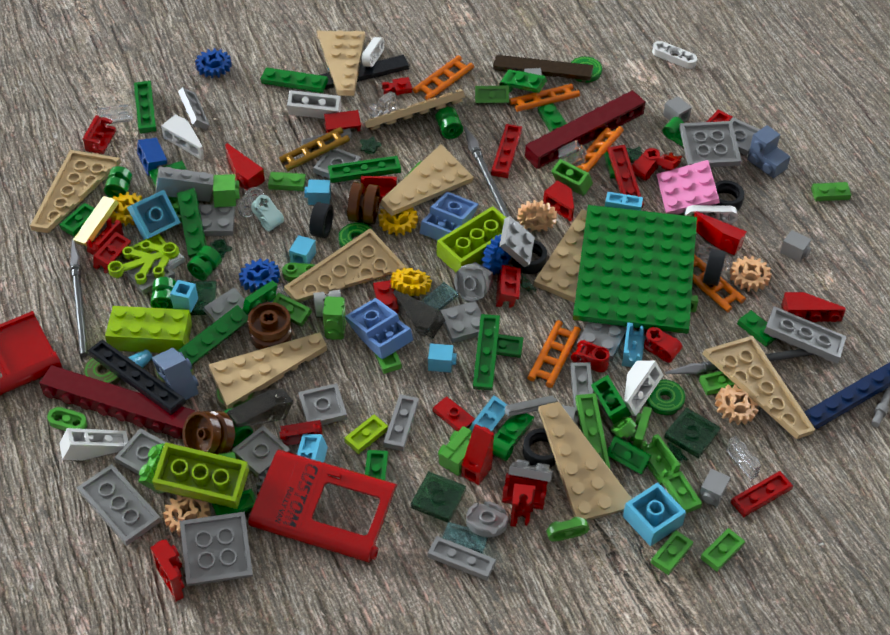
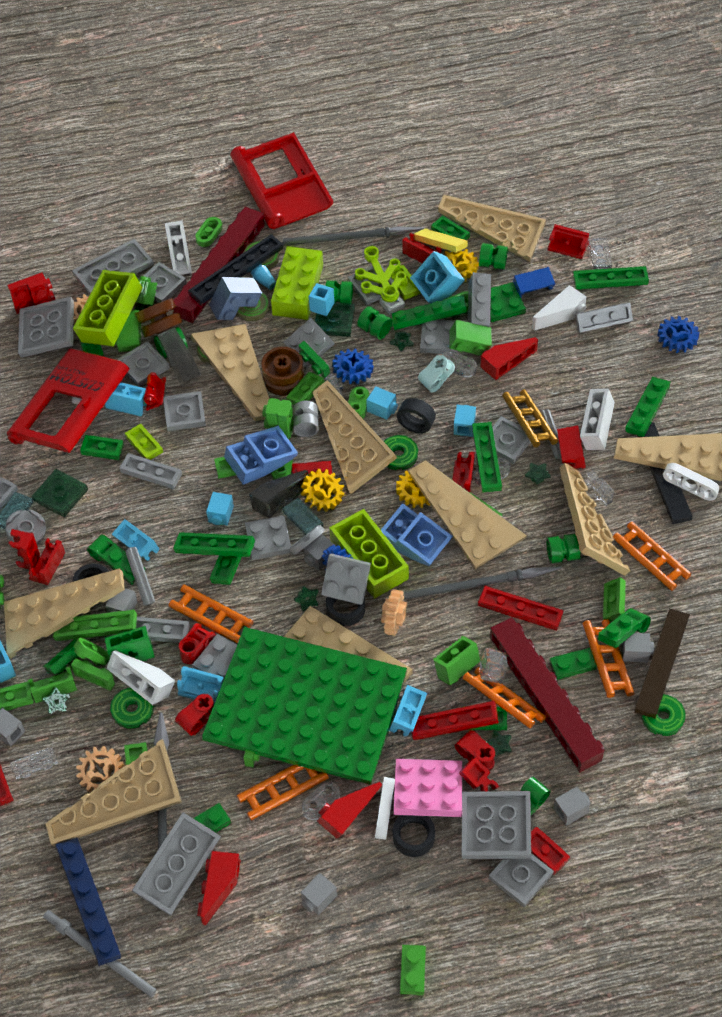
camera: 100 degrees right, 5 degrees up
(110, 251) = (400, 251): red hinge -> none
(214, 335) = (276, 325): green plate -> none
(287, 181) = (489, 397): bright green plate -> none
(363, 203) = (435, 447): reddish brown wheel -> none
(399, 86) = (638, 510): red plate -> none
(453, 414) = (152, 516): red plate -> none
(453, 454) = (104, 512): bright green brick -> none
(478, 455) = (84, 521): red slope -> none
(508, 285) = (302, 576): red hinge -> none
(538, 472) = (59, 562): light grey plate -> none
(561, 198) = (425, 648): red slope -> none
(664, 51) = (690, 820): white beam -> none
(692, 432) = (78, 722): clear green plate -> none
(714, 267) = (282, 778): black tyre -> none
(750, 273) = (276, 837): light nougat gear -> none
(766, 154) = (478, 897): sand blue brick -> none

